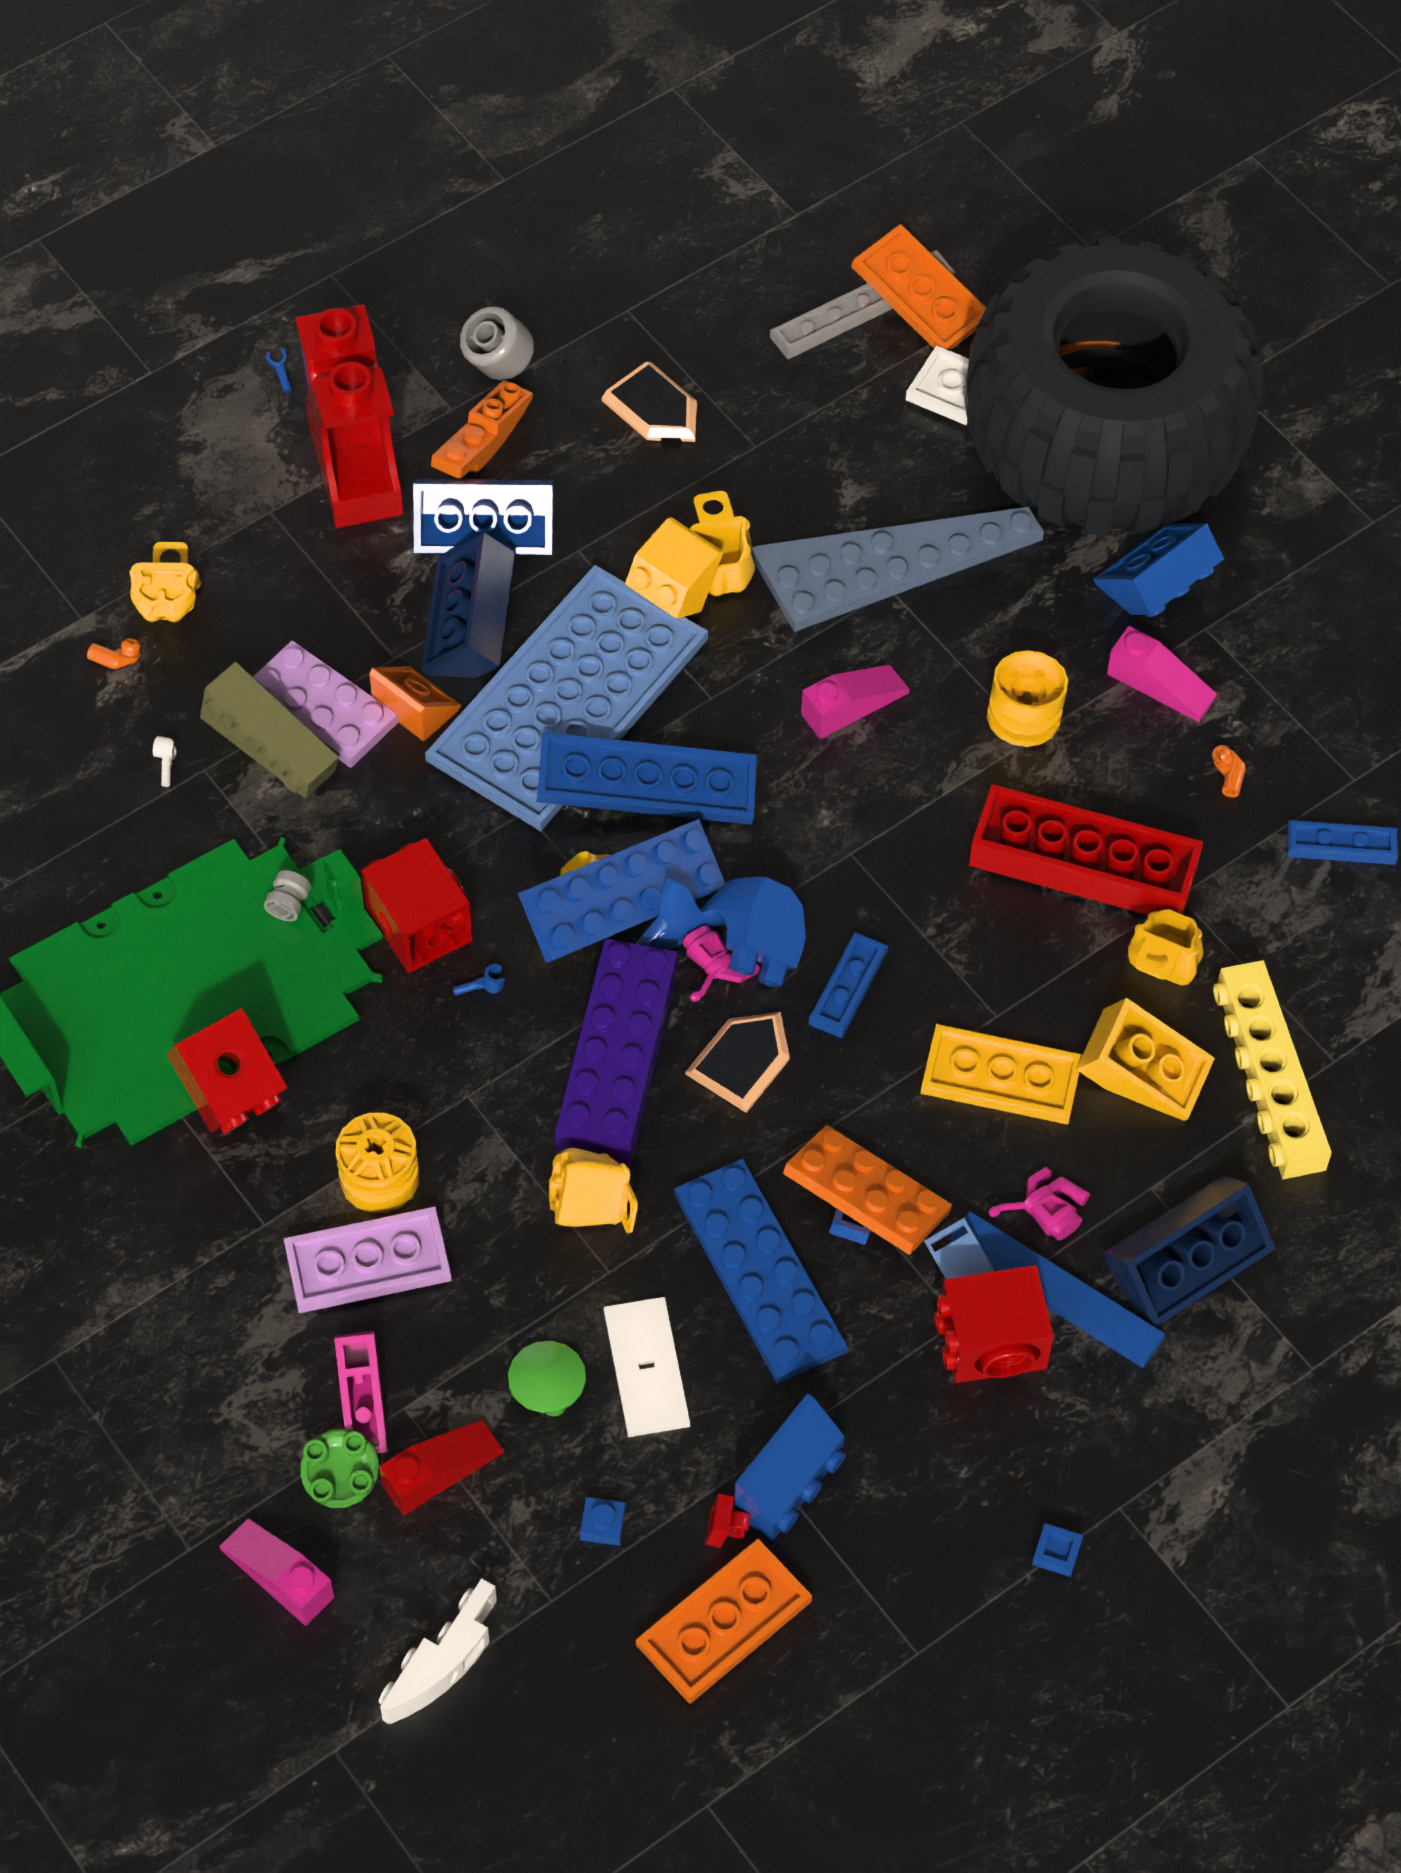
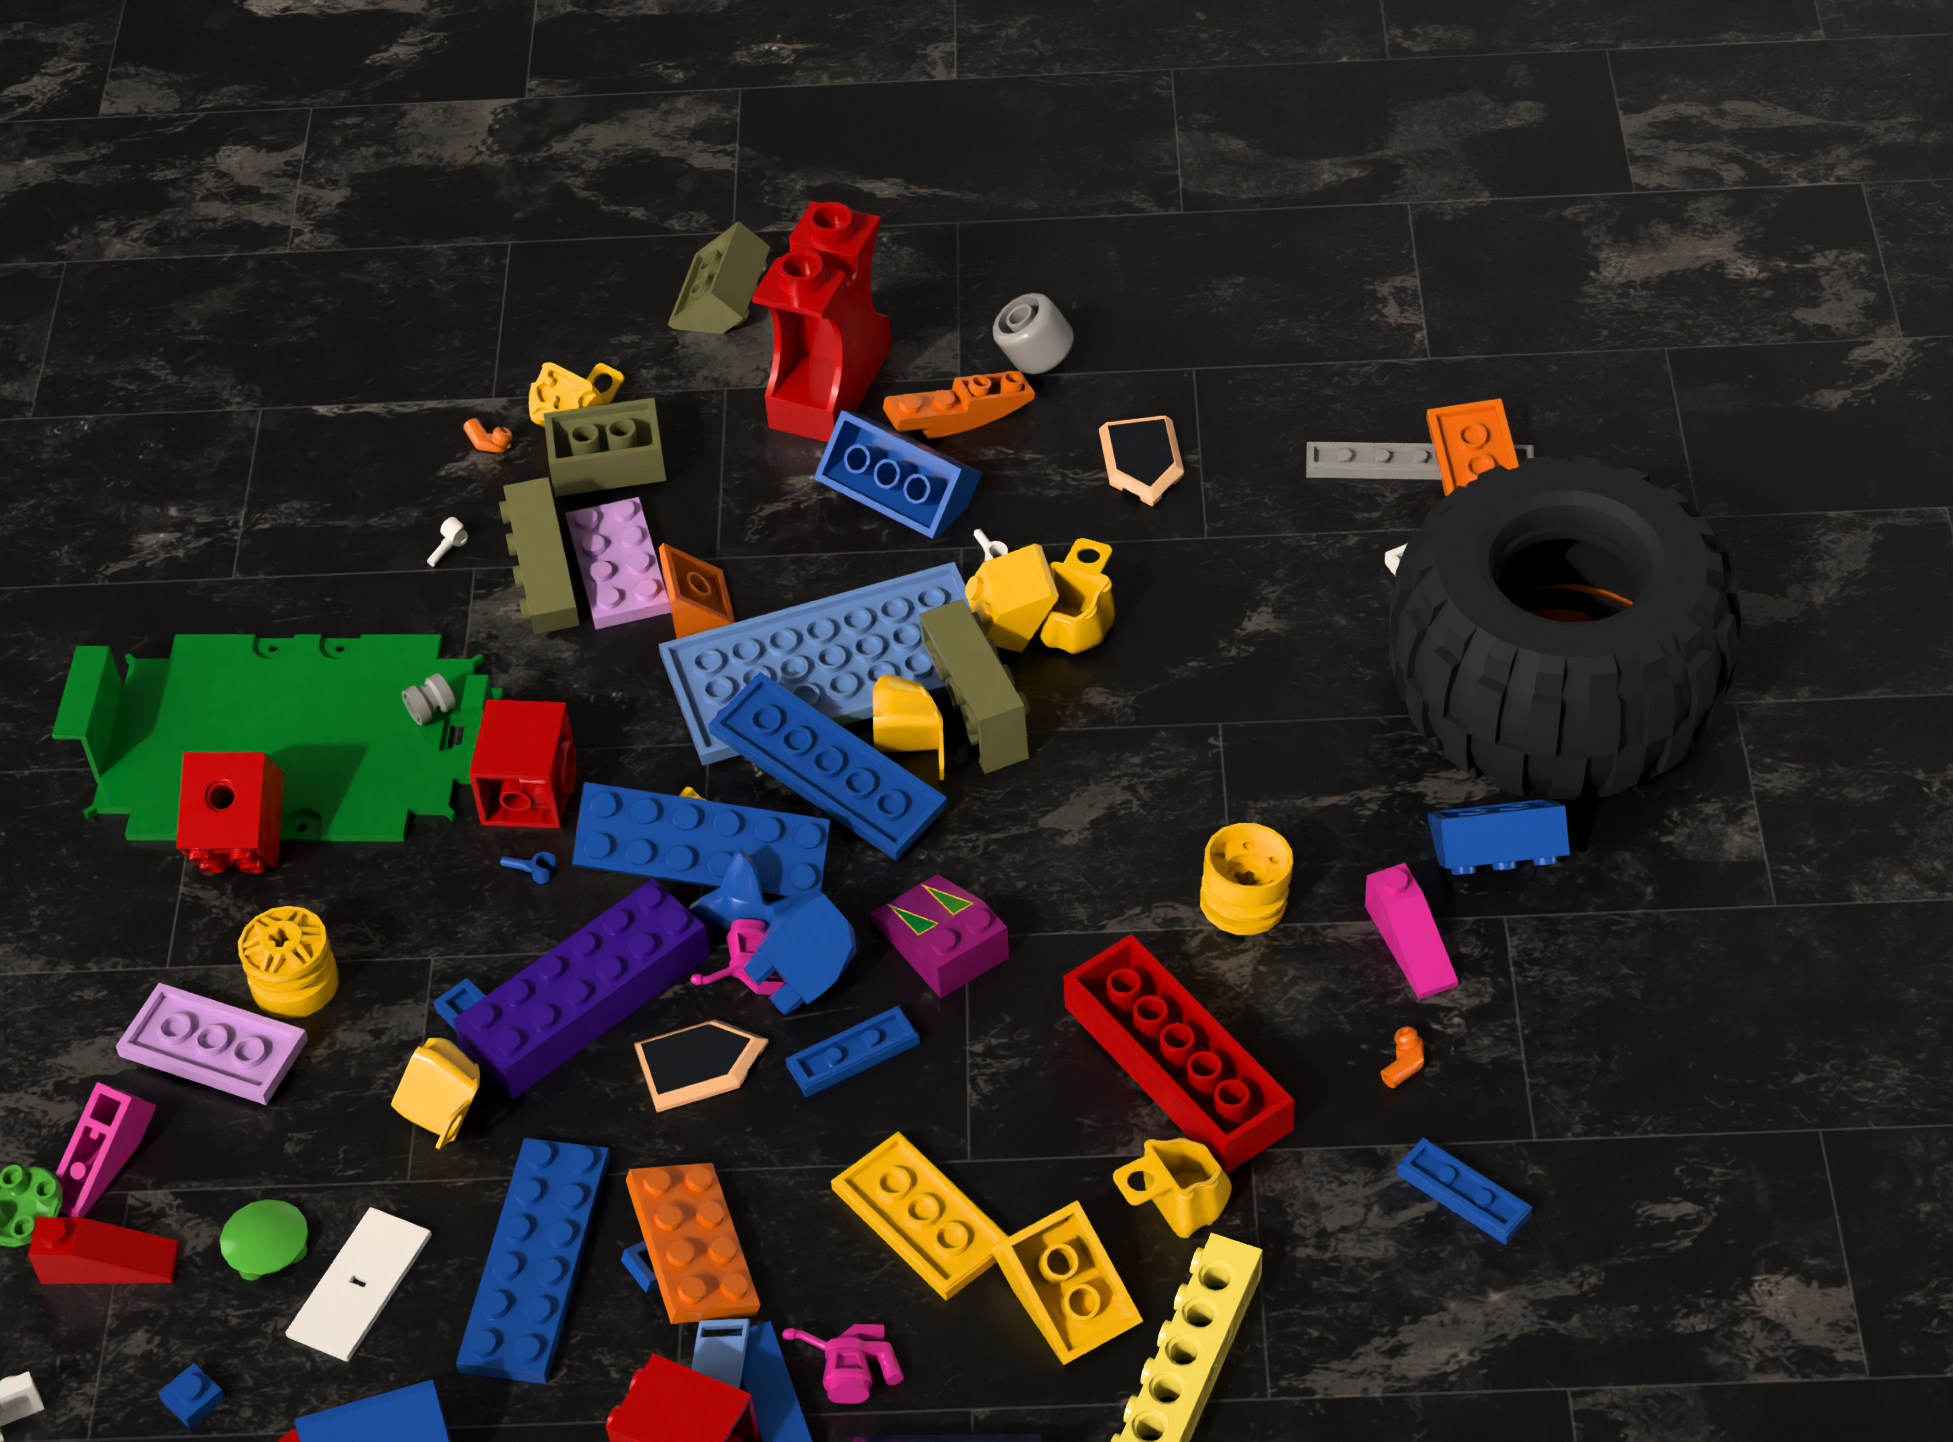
camera: 40 degrees right, 10 degrees down
(191, 423) = (721, 282): none -> olive slope
(234, 611) = (604, 447): none -> olive slope
(468, 609) = (812, 546): dark blue slope -> none
(536, 1118) = (457, 1000): none -> blue plate
(614, 536) = (991, 549): none -> white hand
(678, 705) = (906, 718): none -> yellow piece
(708, 652) = (977, 684): none -> olive wedge
(836, 858) = (944, 933): none -> magenta slope
(849, 697) = (1083, 793): dark pink slope -> none
(853, 569) = (1196, 686): sand blue wing -> none

